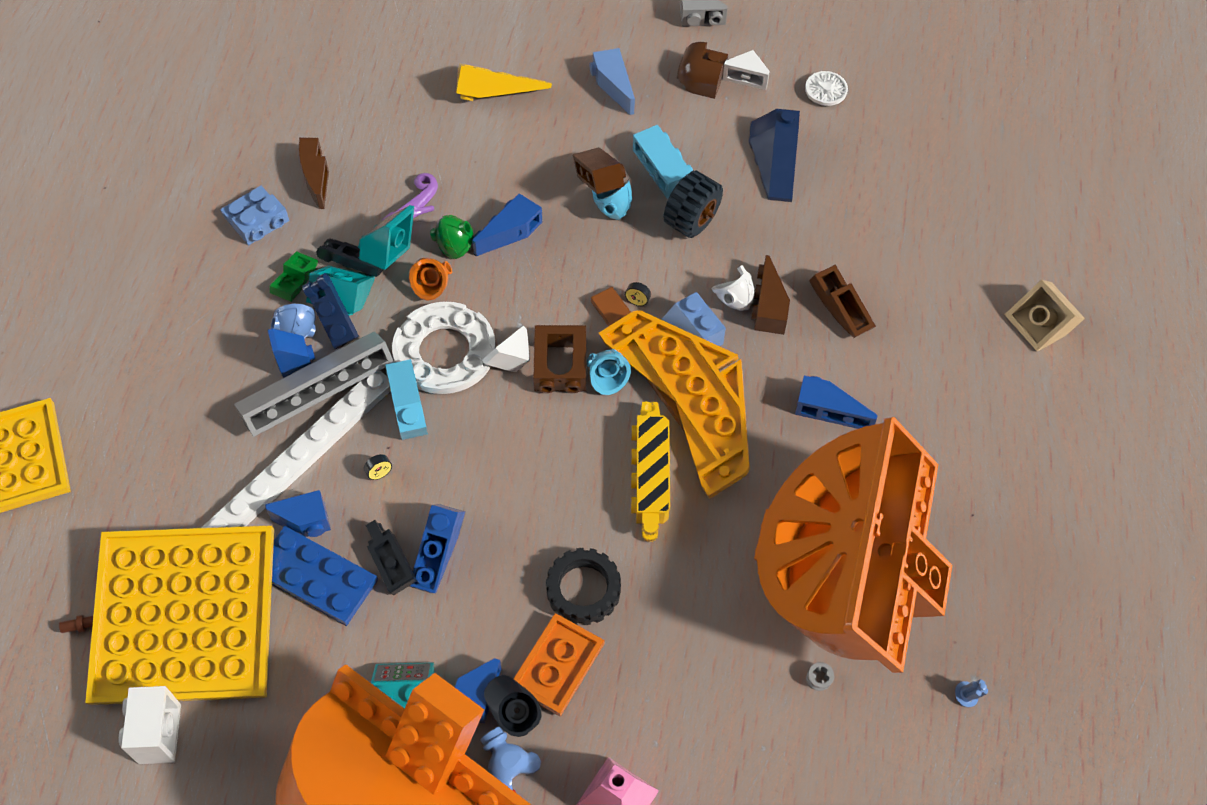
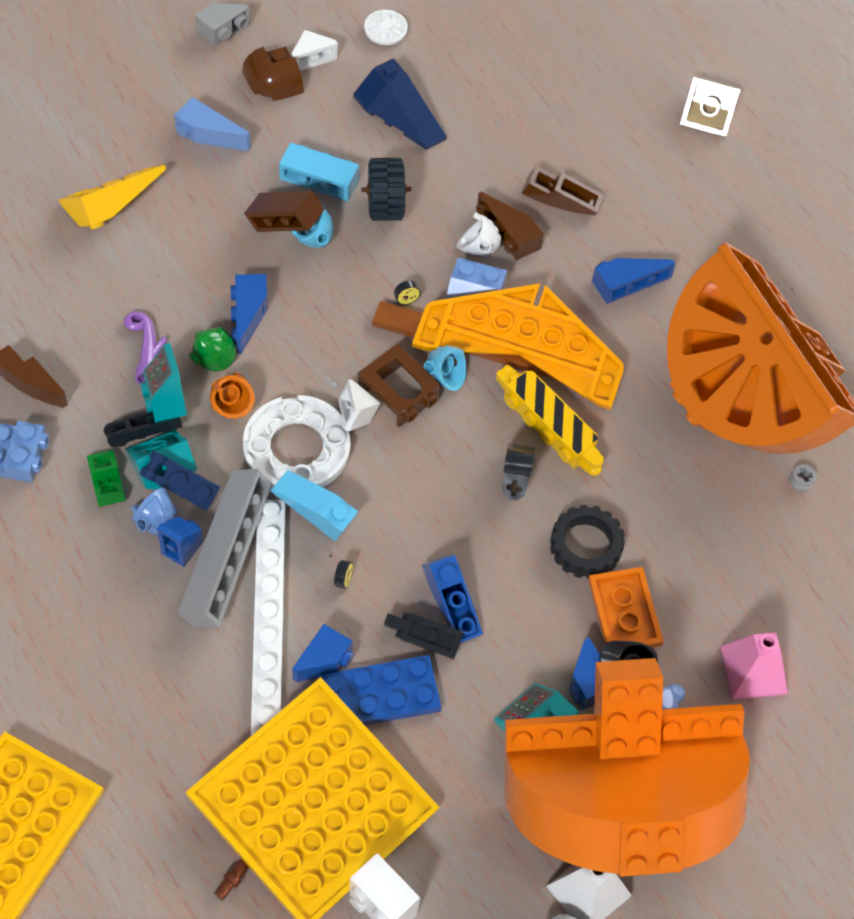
camera: 45 degrees left, 0 degrees up
(578, 484) = (517, 467): none -> black piece

